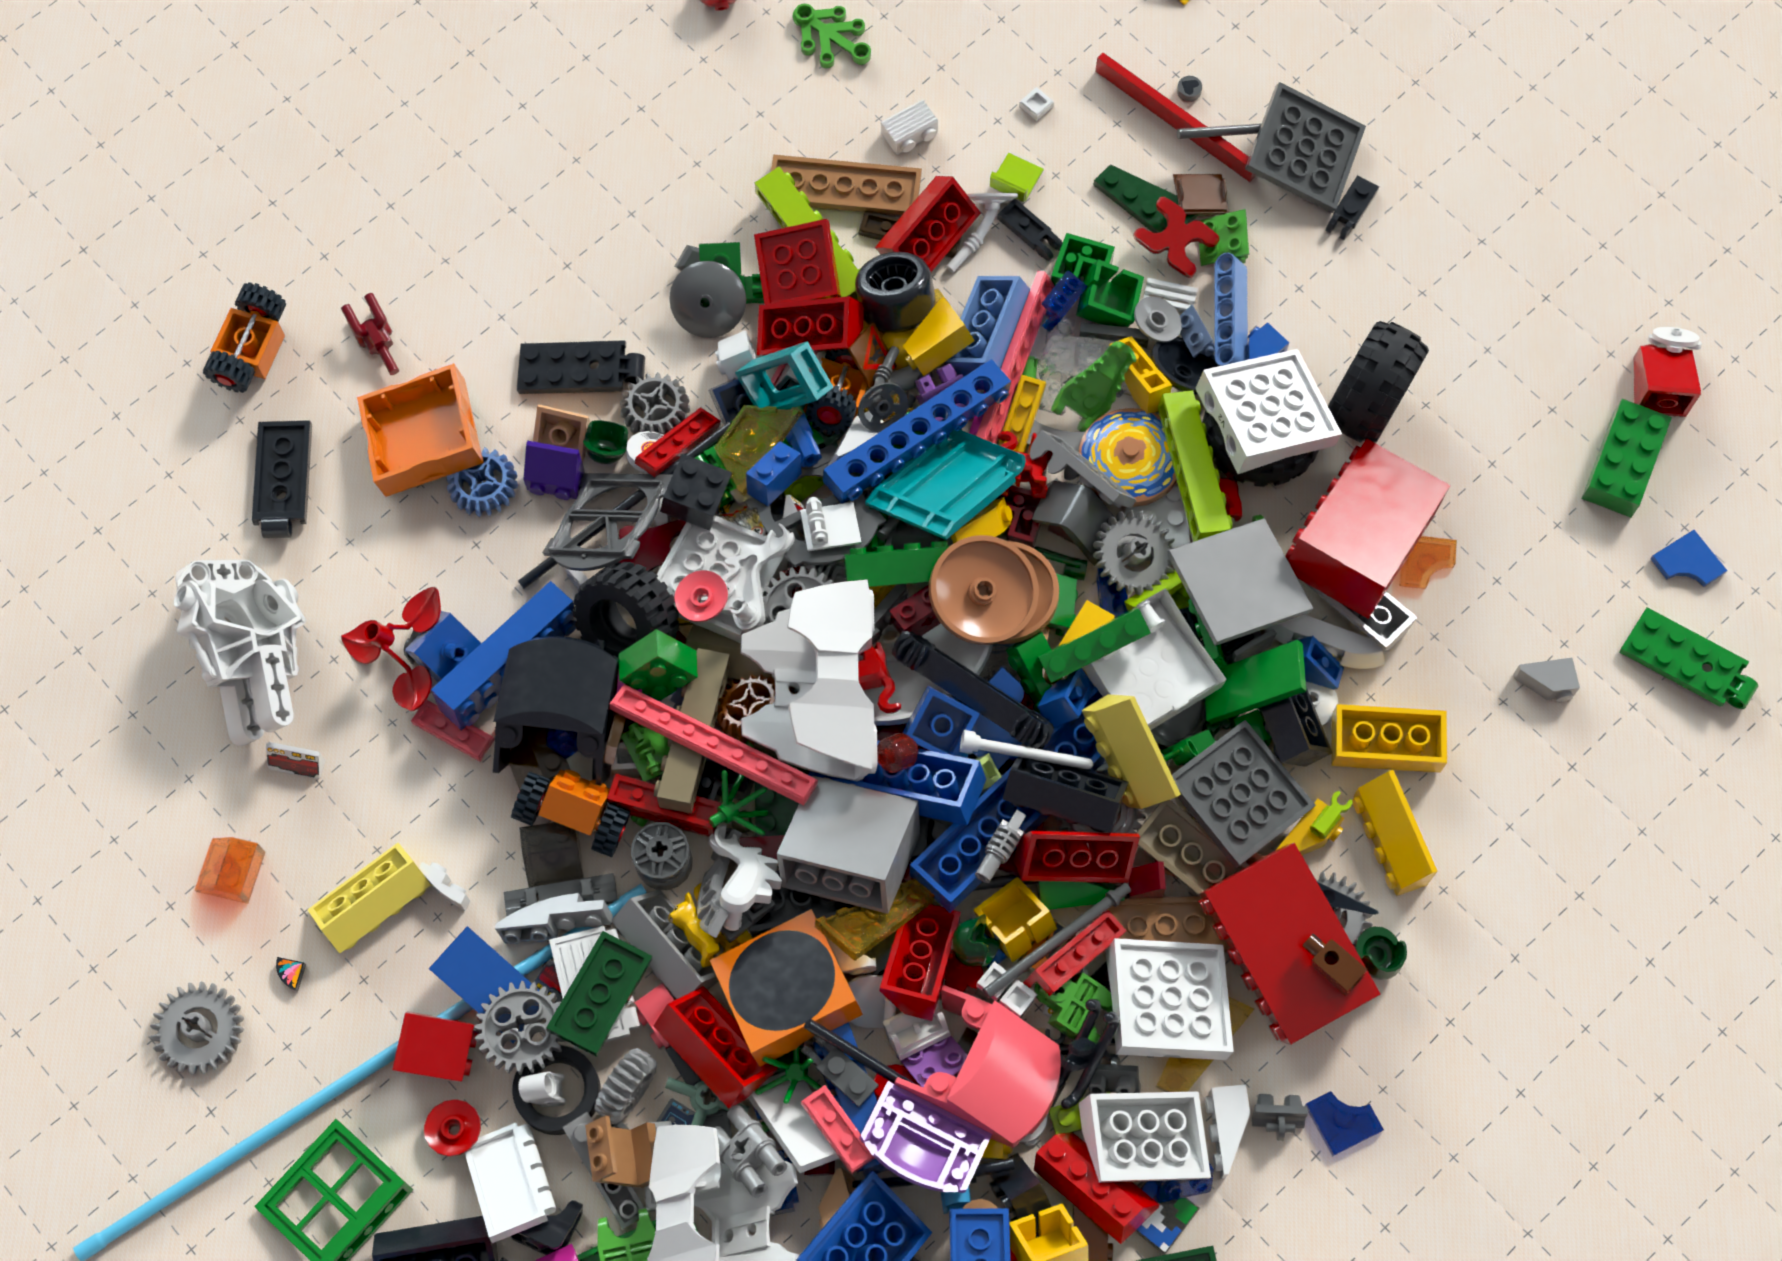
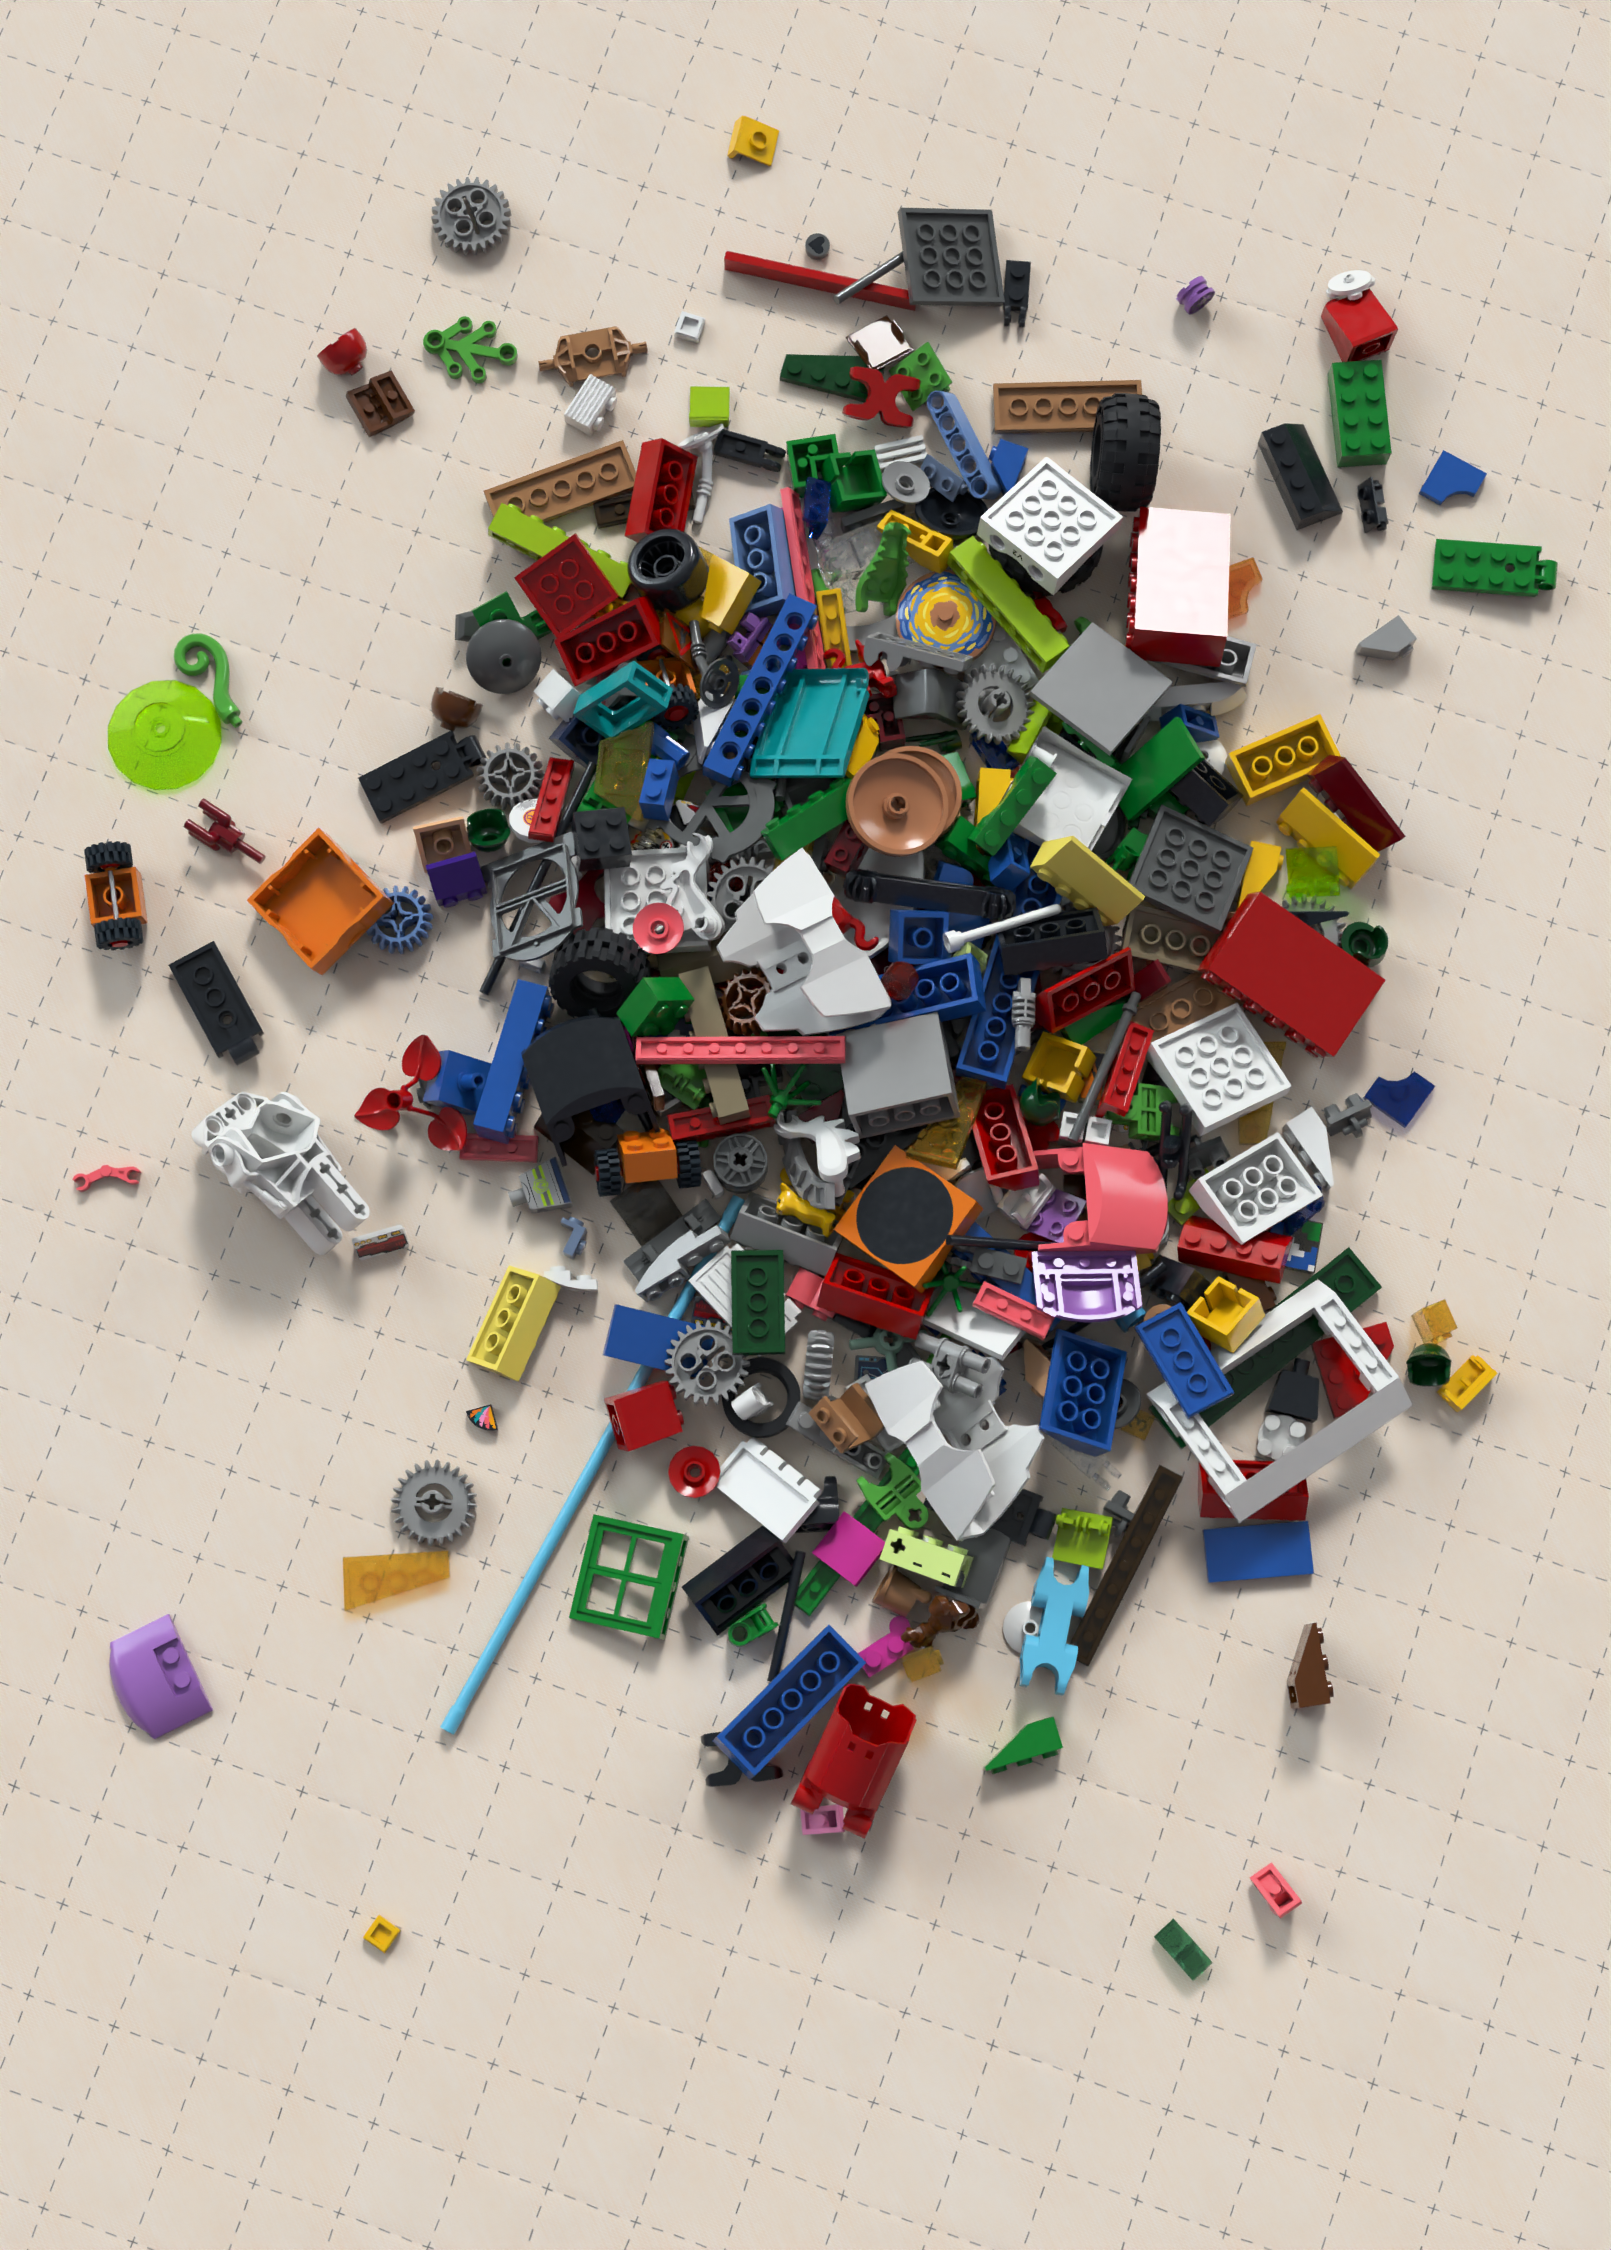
camera: 30 degrees left, 10 degrees up
(93, 574) = (106, 1171): none -> coral piece
(111, 1073) = (388, 1575): none -> clear yellow wing
(230, 869) = (380, 1360): clear orange slope -> none
(383, 246) = (176, 754): none -> clear neon green dish
(442, 224) = (222, 701): none -> bright green plant
(468, 787) = (542, 1188): none -> light grey torso
(469, 851) = (576, 1241): none -> sand blue bracket
(627, 864) = (713, 1183): none -> white tile
(638, 324) = (454, 709): none -> reddish brown cylinder
(727, 44) = (380, 403): none -> reddish brown slope
(829, 525) = (733, 812): white hinge -> none
(952, 97) = (577, 366): none -> medium nougat plate
(1328, 315) = (1053, 405): none -> medium nougat plate
(1329, 817) = (1269, 852): lime bar -> none
(1344, 973) = (1353, 976): reddish brown torso -> none
(1364, 858) = (1312, 872): none -> clear neon green hinge
(1437, 810) = (1354, 802): none -> dark red slope
(1520, 282) = (1195, 295): none -> medium lavender wheel
(1540, 486) = (1298, 474): none -> black slope
(1600, 537) = (1369, 495): none -> black hinge

